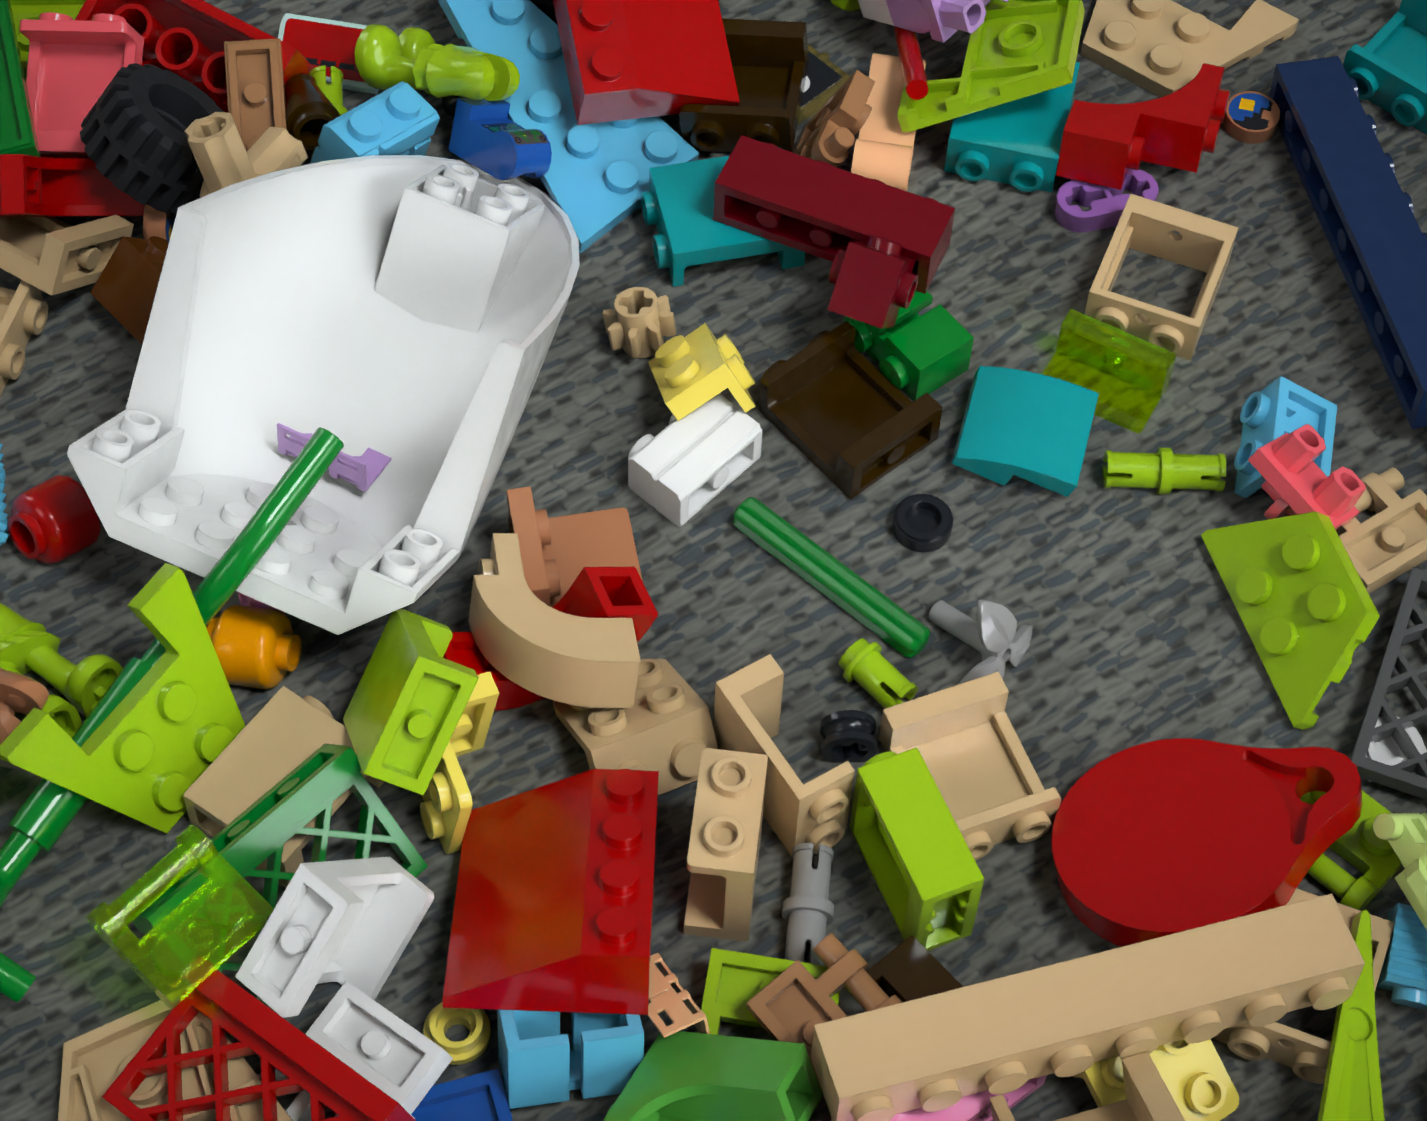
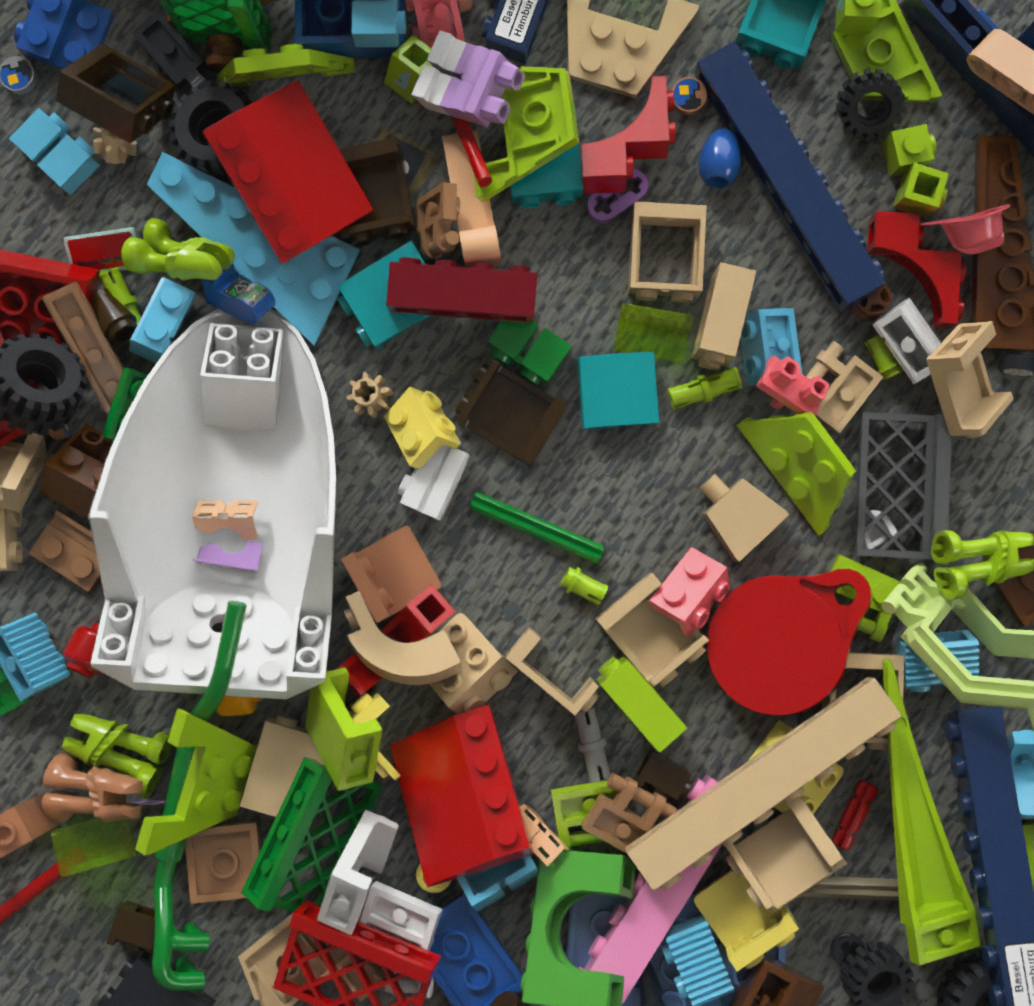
camera: 15 degrees left, 30 degrees up
(86, 383) = (69, 550): none -> medium nougat plate
(89, 868) = (221, 860): none -> medium nougat plate
(197, 932) = (288, 908): clear neon green plate -> none
(224, 157) = (102, 402): tan piece -> none
(370, 415) = (242, 525): none -> light nougat piece
(725, 843) = (540, 740): tan panel -> none
(848, 736) = (580, 632): black bush -> none
(872, 281) = (503, 344): dark red brick -> none
(922, 523) = (577, 471): black tile -> none
(991, 634) = (641, 545): light grey plant -> none
(1056, 730) = (692, 591): none -> coral bracket
(1171, 651) = (740, 515): none -> tan torso
(1221, 366) = (723, 316): none -> tan window
(1275, 194) = (720, 159): none -> blue animal

